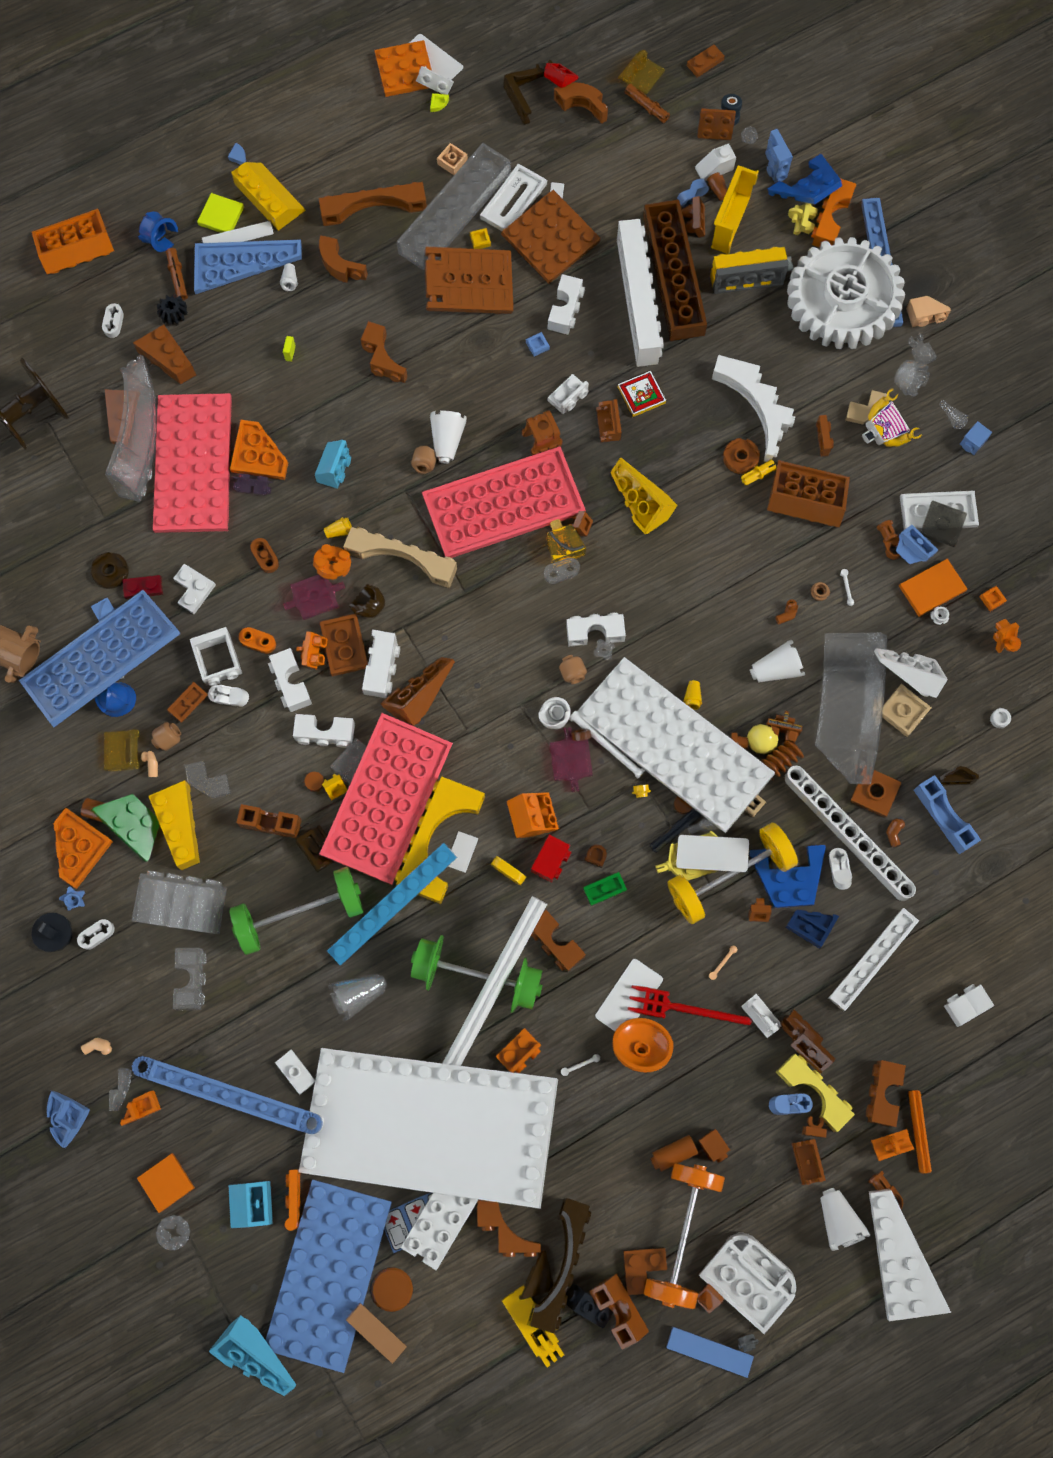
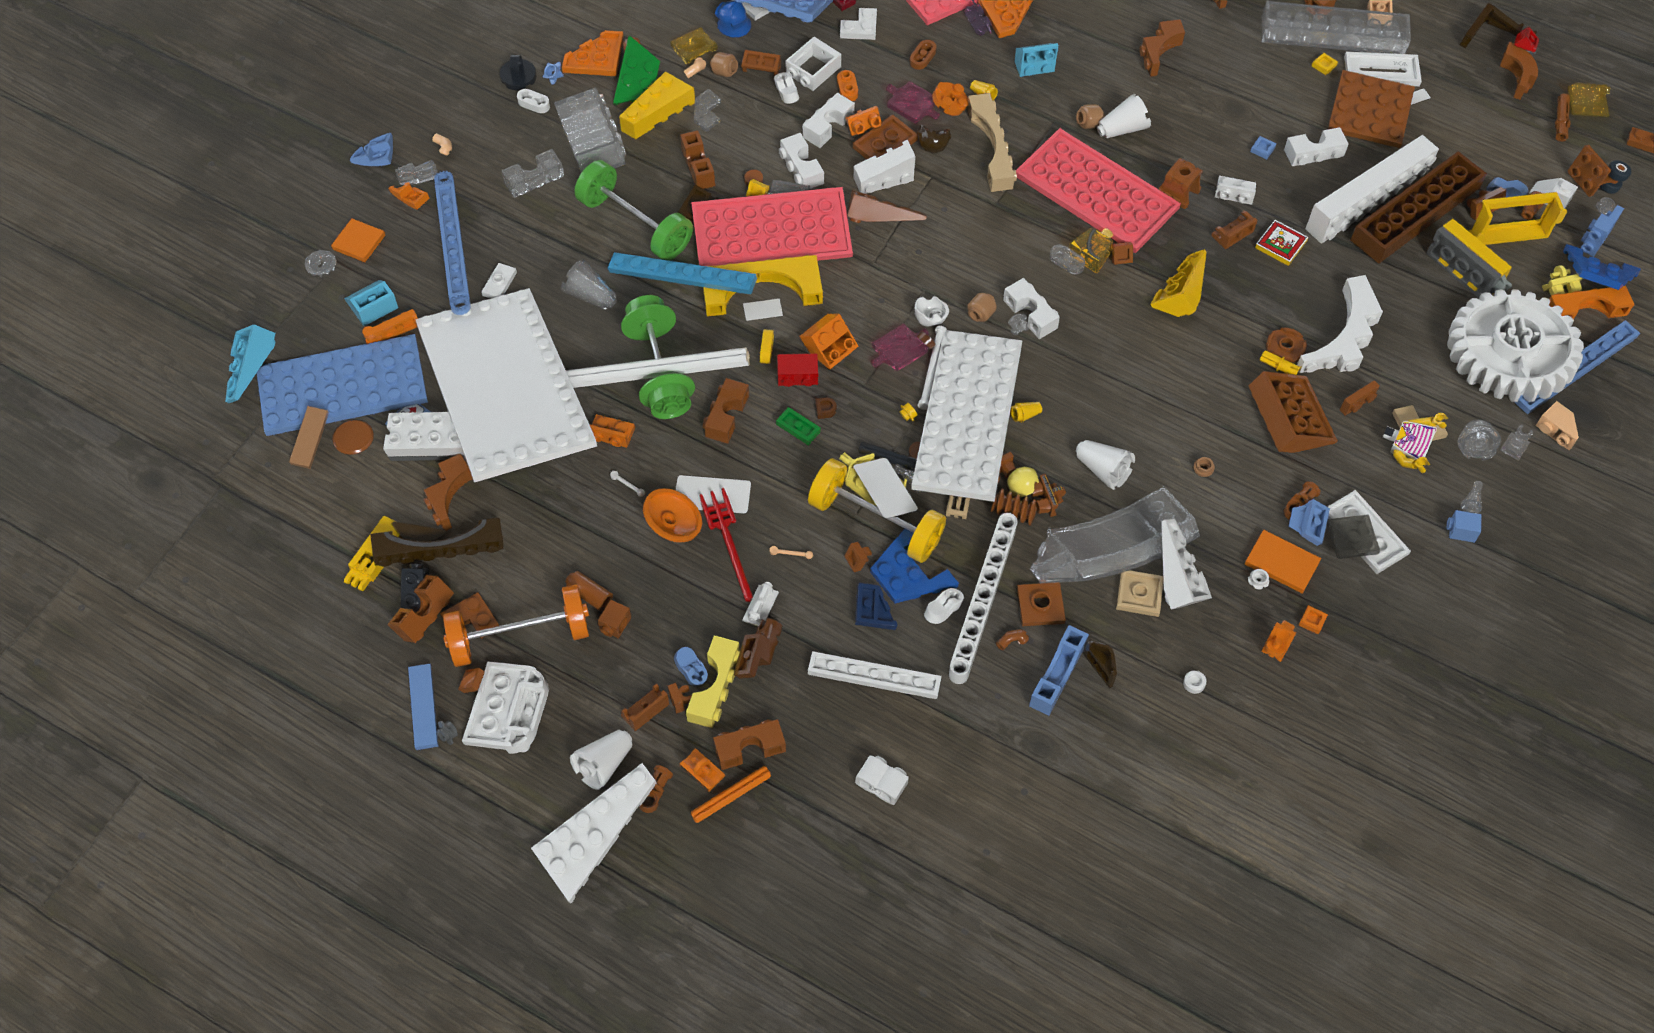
camera: 60 degrees right, 15 degrees down
(469, 280) = (1276, 67): dark orange door -> none
(790, 612) = (1163, 453): dark orange arm -> none
(844, 573) = (1238, 481): white hinge -> none

